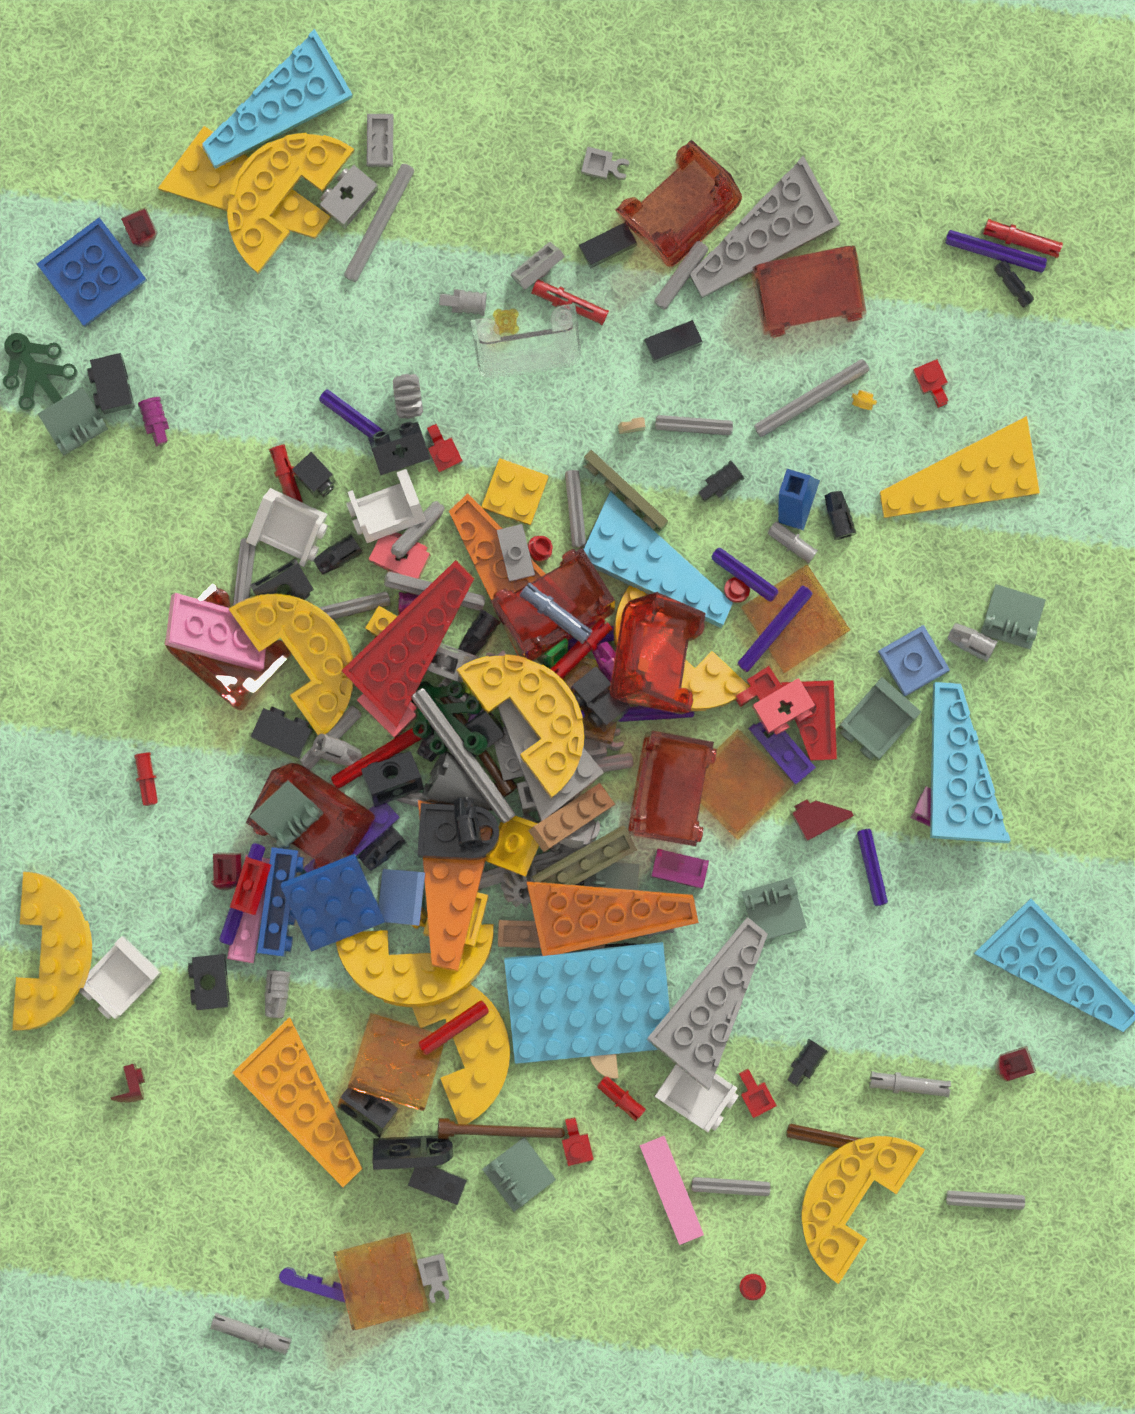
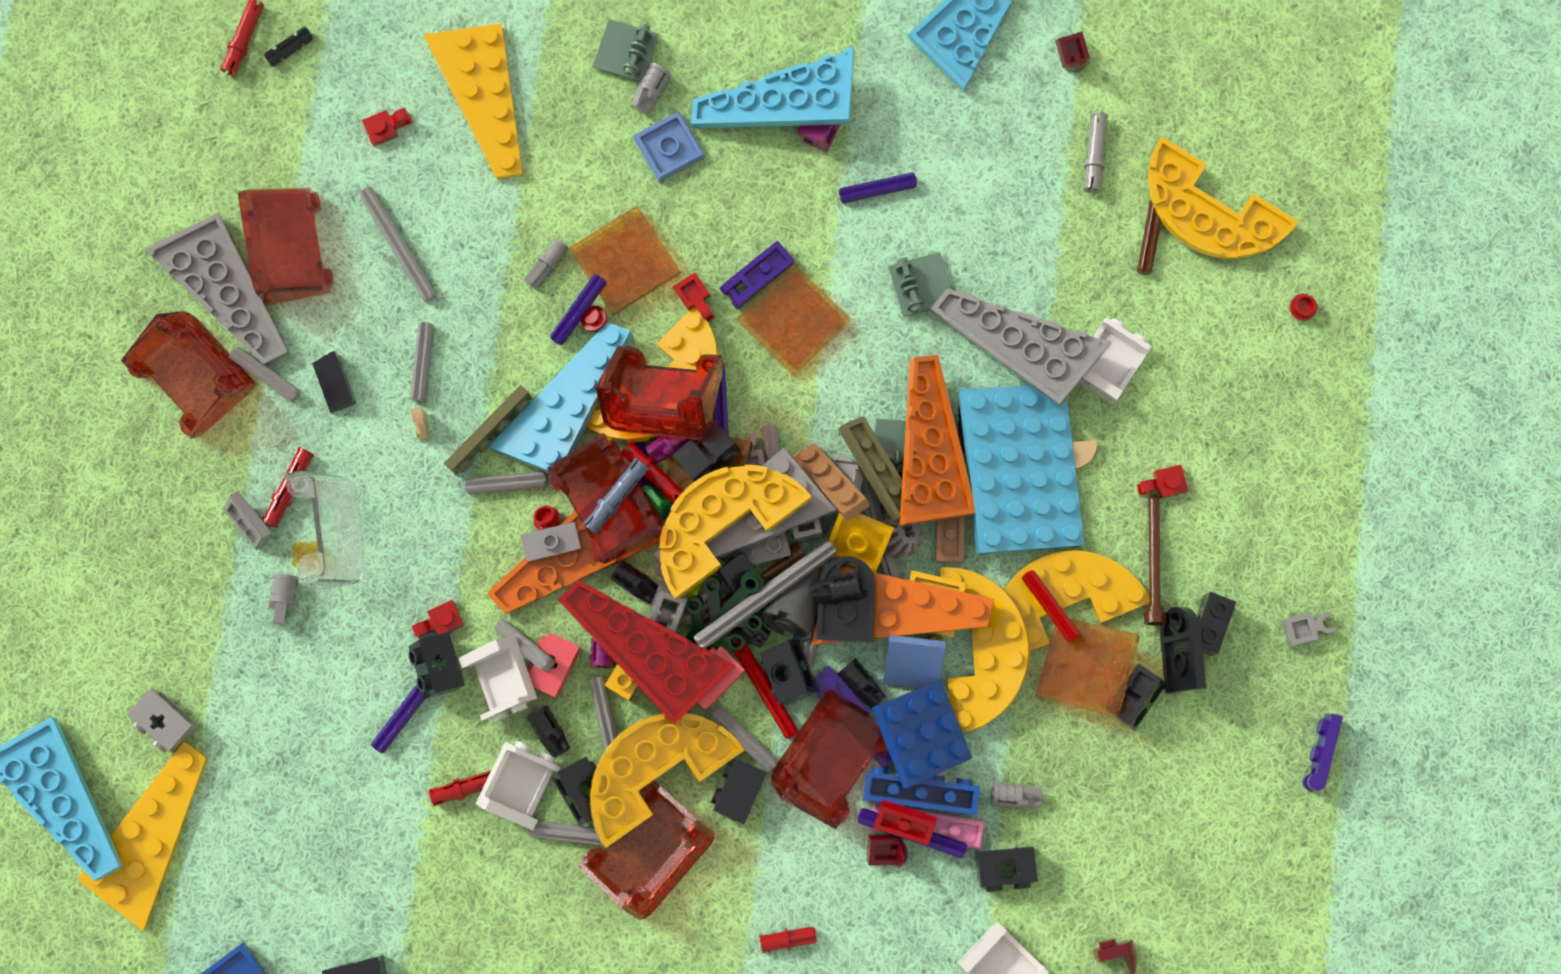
camera: 90 degrees left, 5 degrees down
(140, 228) = (186, 950): dark red plate -> none
(154, 419) = (397, 932): magenta hinge -> none
(210, 632) = (630, 868): bright pink tile -> none
(252, 1334) = (1376, 819): light grey pin -> none
(266, 182) = (139, 808): yellow plate -> none
(286, 814) = (828, 783): sand green hinge -> none
(290, 1088) = (1116, 781): light orange wing -> none
(314, 476) = (463, 755): black brick -> none
(335, 750) = (758, 733): light grey hinge -> none
(379, 222) = (193, 688): light grey axle -> none
(380, 140) = (104, 687): light grey plate -> none
(381, 1281) = (1316, 683): clear orange plate -> none
(407, 396) = (380, 656): light grey gear -> none
(417, 586) = (585, 641): light grey axle -> none
(515, 491) = (486, 545): yellow plate -> none
(519, 1174) = (1198, 541): sand green hinge -> none
(600, 163) = (142, 456): light grey plate -> none
(608, 245) = (229, 448): black slope -> none
(621, 1098) = (1117, 436): red axle -> none
(670, 788) = (799, 384): clear red windscreen -> none
(671, 1190) = (1208, 387): bright pink tile -> none
(680, 868) = (880, 376): magenta hinge -> none
(721, 481) = (481, 333): black hinge -> none
(731, 1186) = (1203, 328): light grey axle -> none
(757, 1096) = (1111, 300): red plate -> none
(774, 628) = (635, 278): dark purple axle -> none
(792, 694) = (720, 283): coral brick -> none
(796, 498) = (501, 257): blue slope -> none
(806, 1062) = (1076, 251): black hinge -> none
(818, 817) = (829, 240): dark red slope -> none
(819, 729) = (724, 242): red wing -> none
(839, 515) = (519, 216): black hinge -> none
(863, 400) = (401, 191): yellow plate -> none
(878, 719) = (727, 179): sand green panel -> none
(988, 1200) = (1207, 82): light grey axle -> none
(996, 251) = (254, 63): dark purple axle -> none

